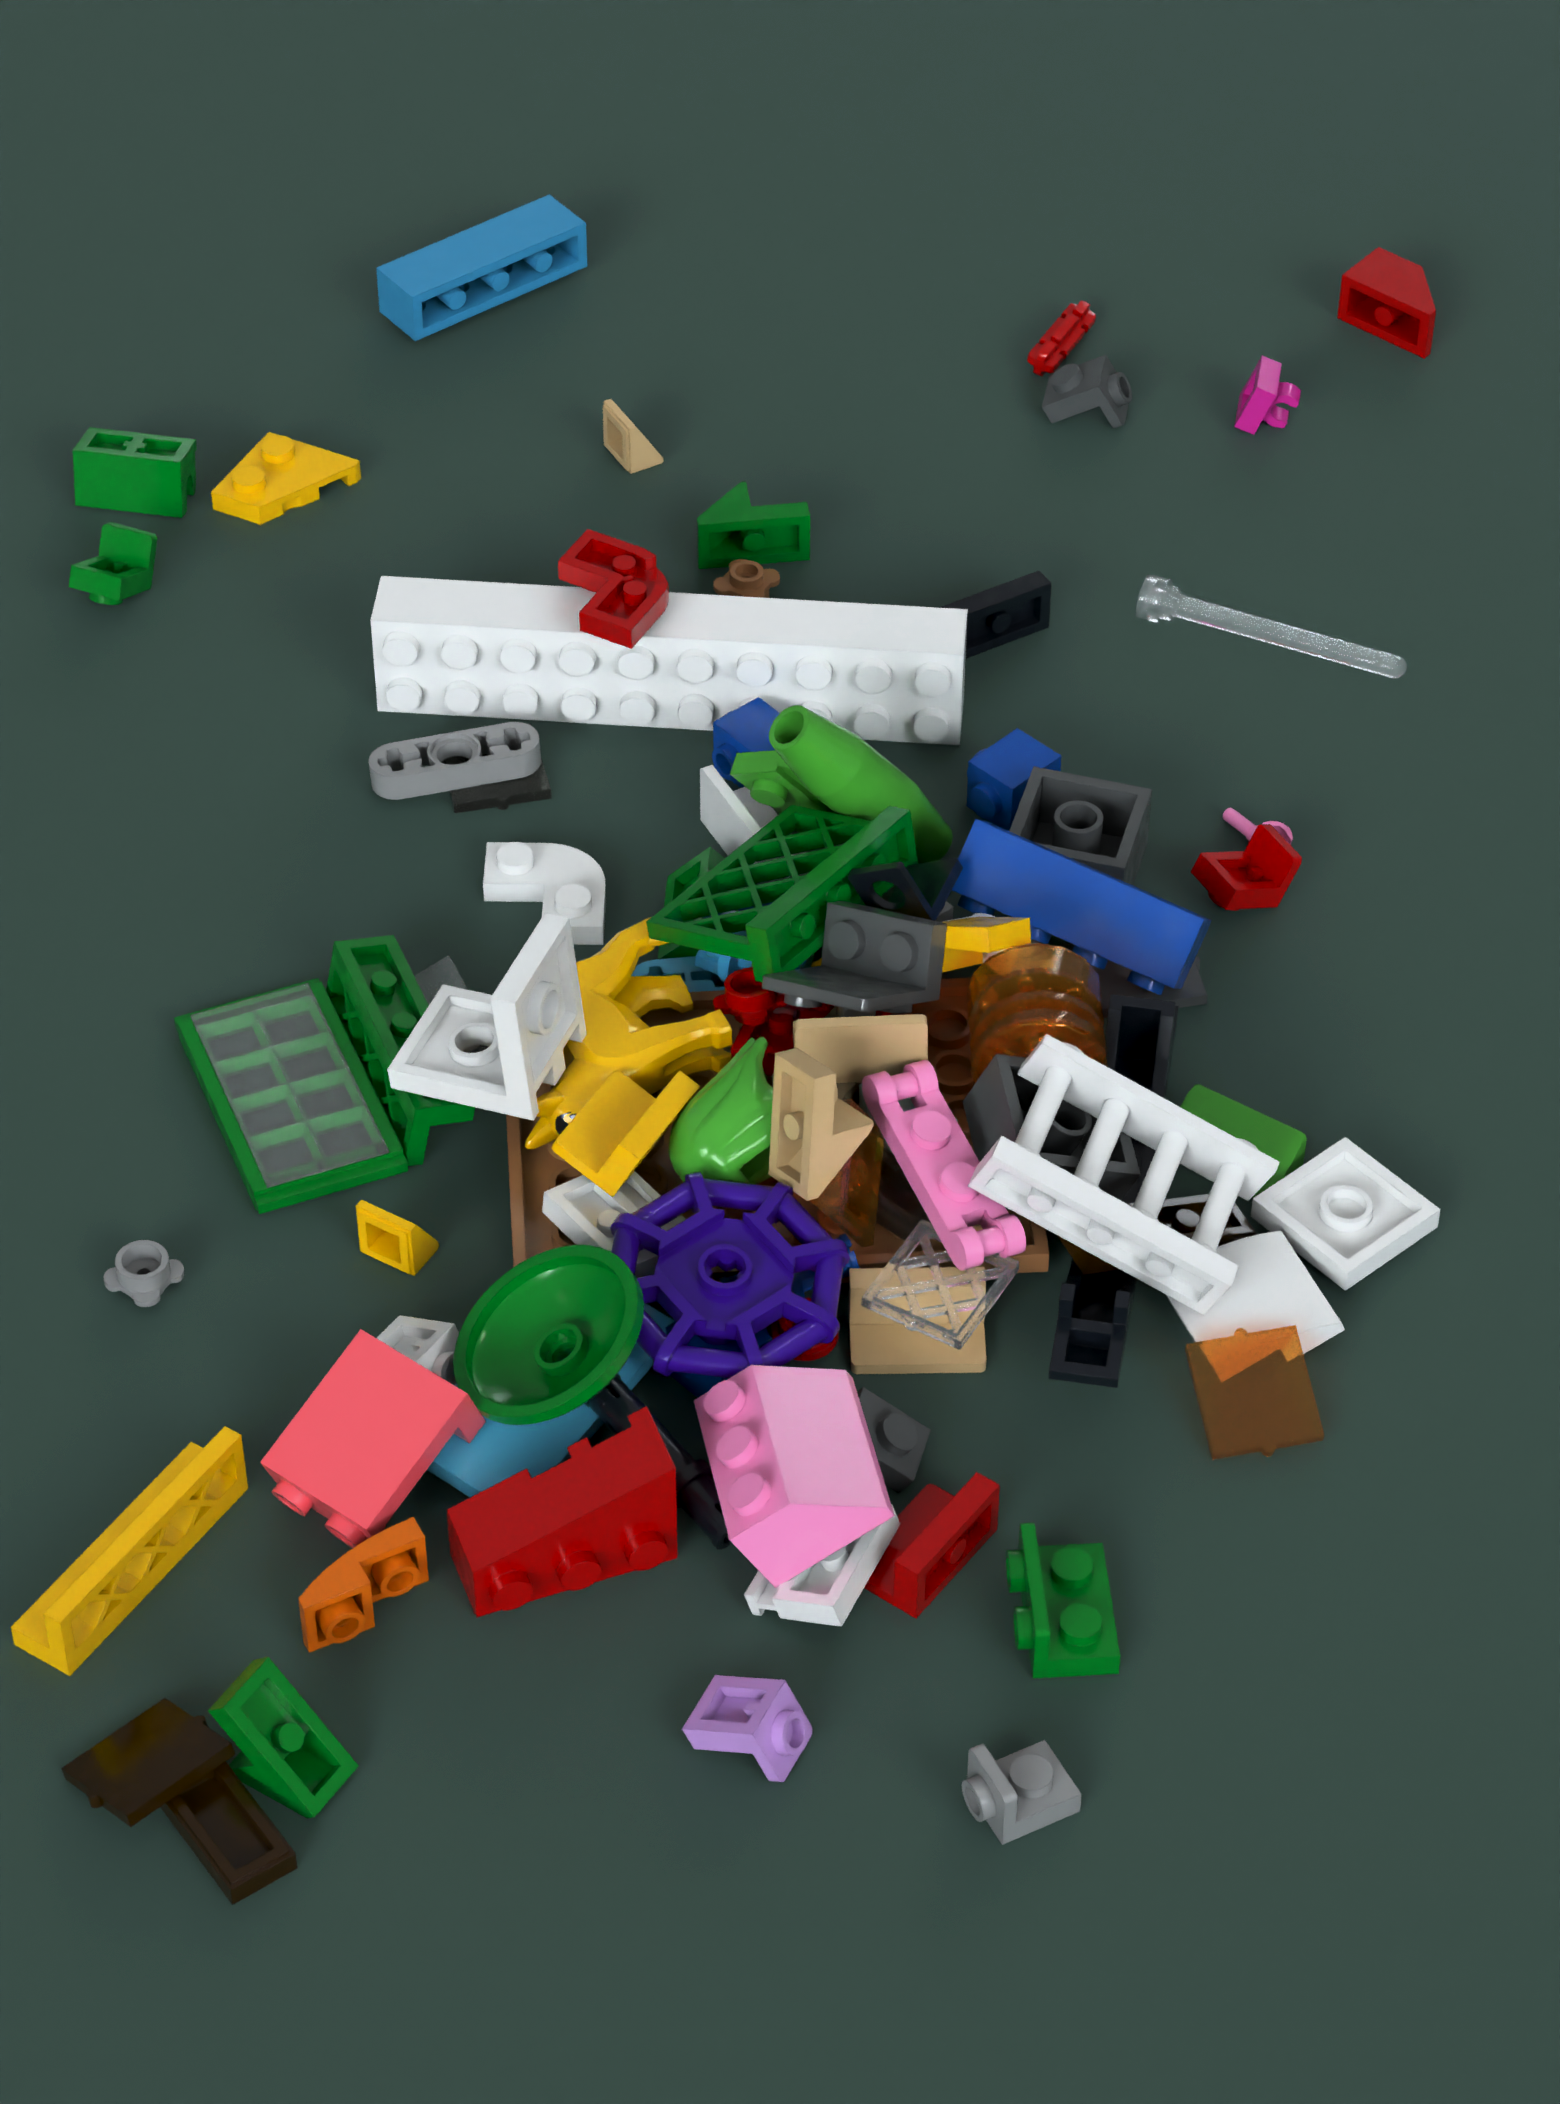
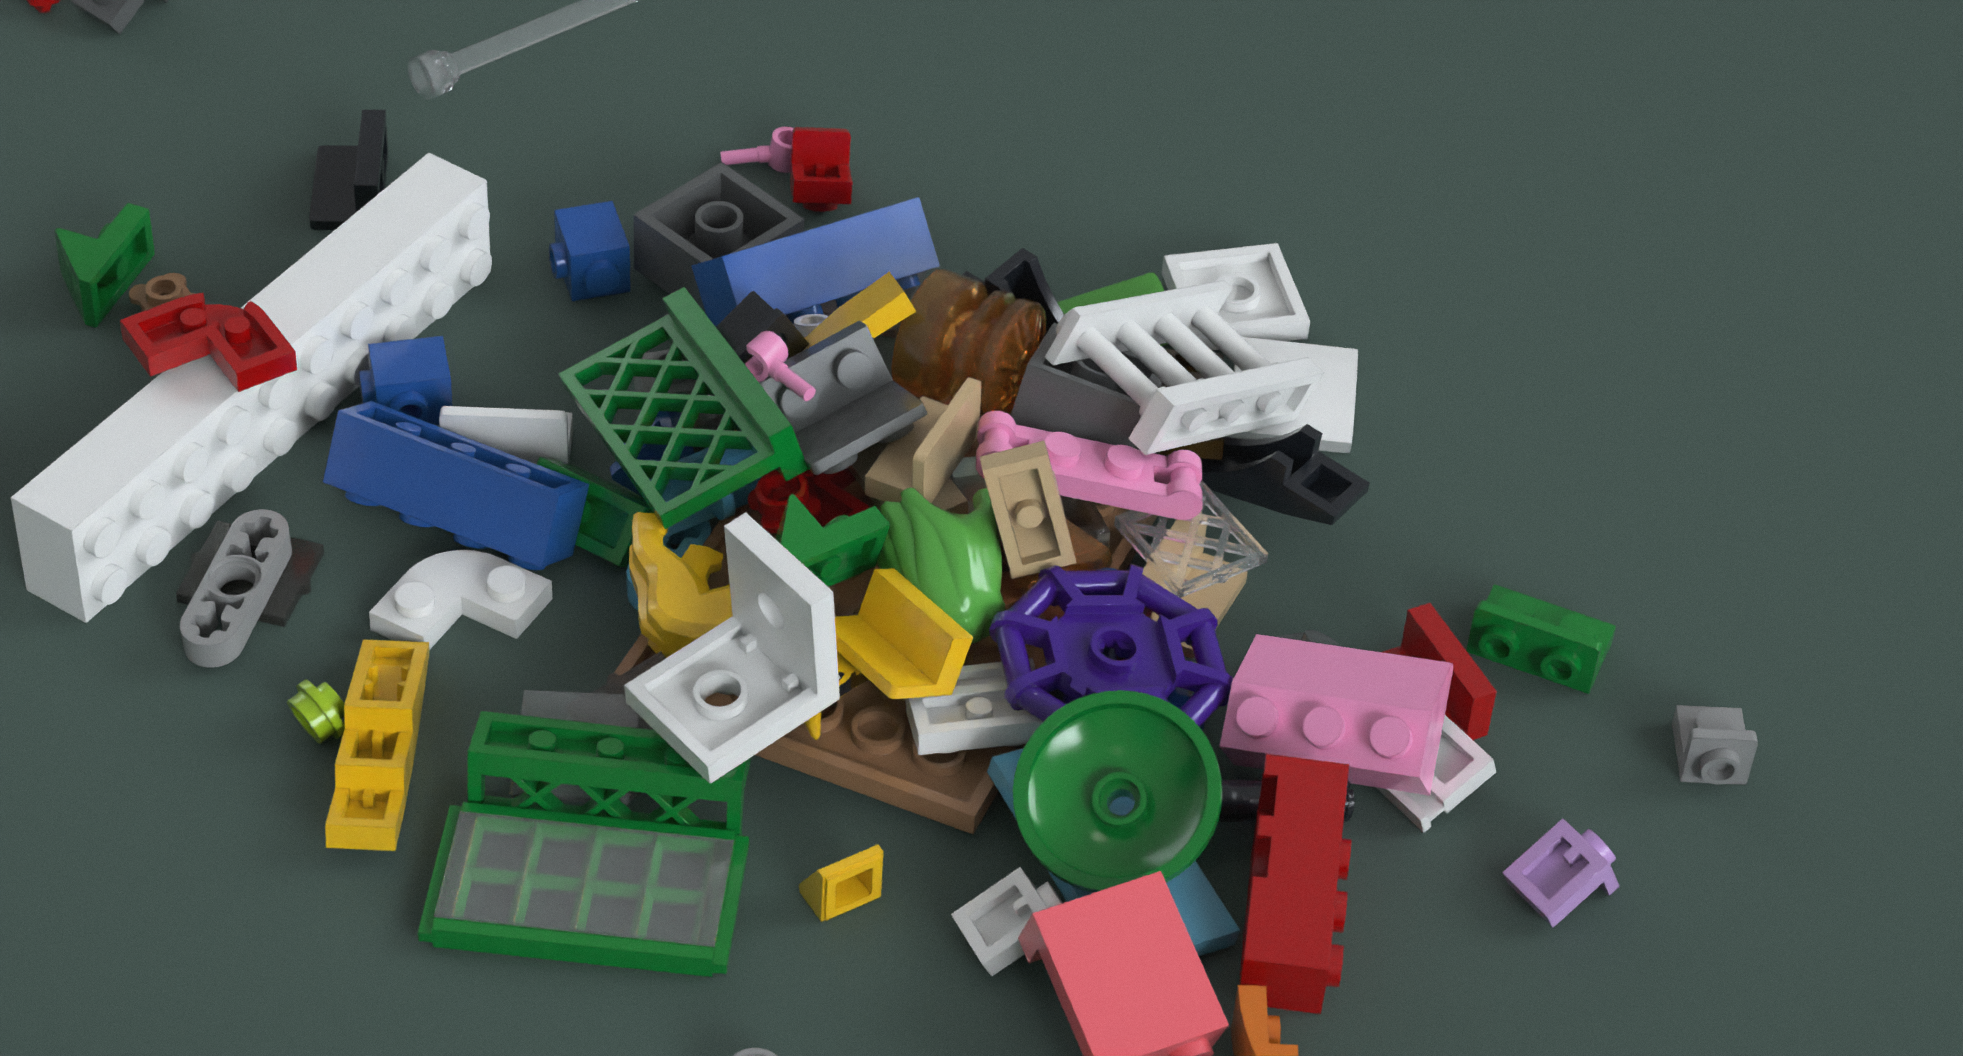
camera: 65 degrees left, 0 degrees up
(356, 861) = (318, 710): none -> lime plate
(370, 902) = (377, 745): none -> yellow slope
(647, 816) = (455, 485): none -> blue brick
(659, 1024) = (839, 548): none -> green slope
(838, 773) = (584, 317): bright green plate -> none
(853, 889) = (769, 359): none -> bright pink hand
(1254, 1392) = (1392, 431): clear orange piece -> none

